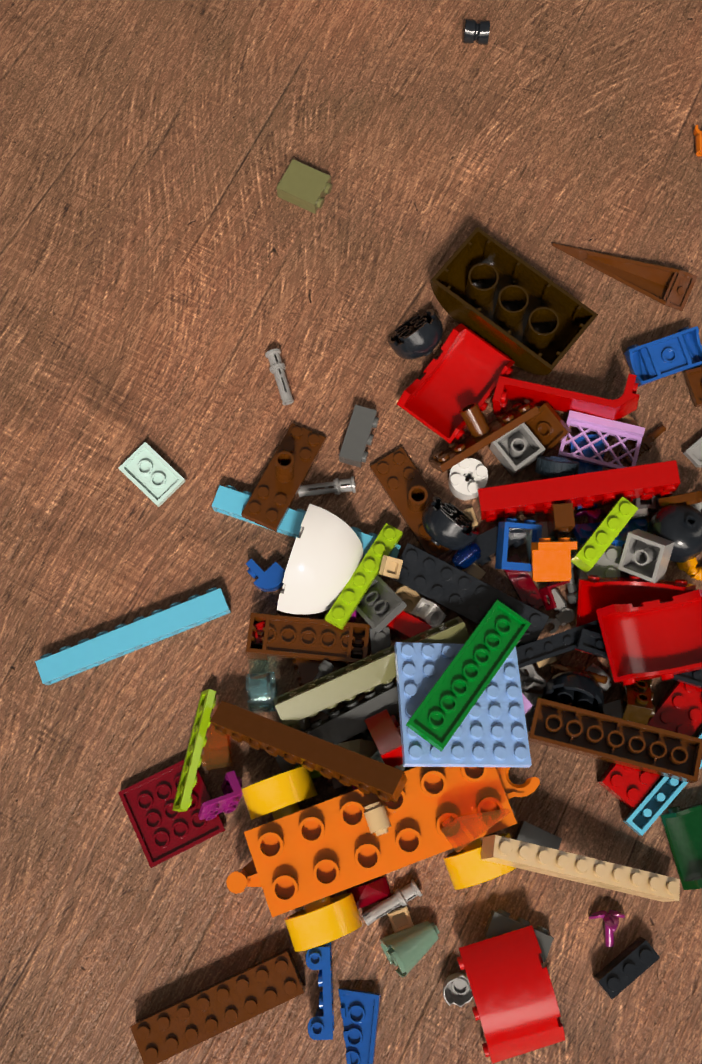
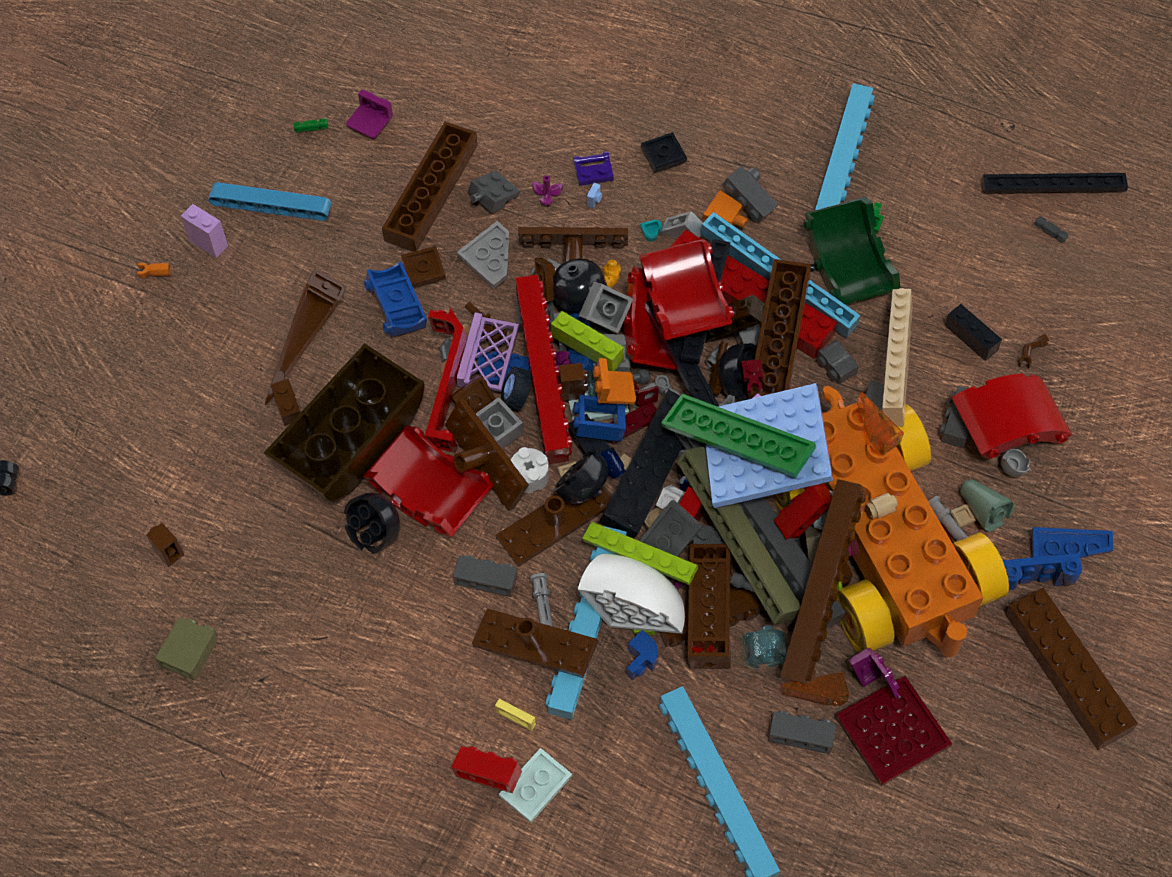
camera: 95 degrees left, 15 degrees down
(167, 431) = (487, 769): none -> red brick
(177, 720) = (802, 732): none -> dark grey brick
(193, 755) = (832, 706): lime plate -> none
(218, 458) = (515, 714): none -> light yellow tile
(277, 368) = (409, 661): light grey pin -> none
(390, 567) = (630, 527): tan plate -> none
(401, 160) = (165, 544): none -> reddish brown brick
(550, 257) = (285, 400): none -> reddish brown brick
(560, 703) = (753, 373): none -> dark red plate
(589, 805) = (837, 362): none -> dark grey brick
(603, 1029) = (1040, 341): none -> reddish brown arm
(611, 923) = (935, 343): magenta plant -> none

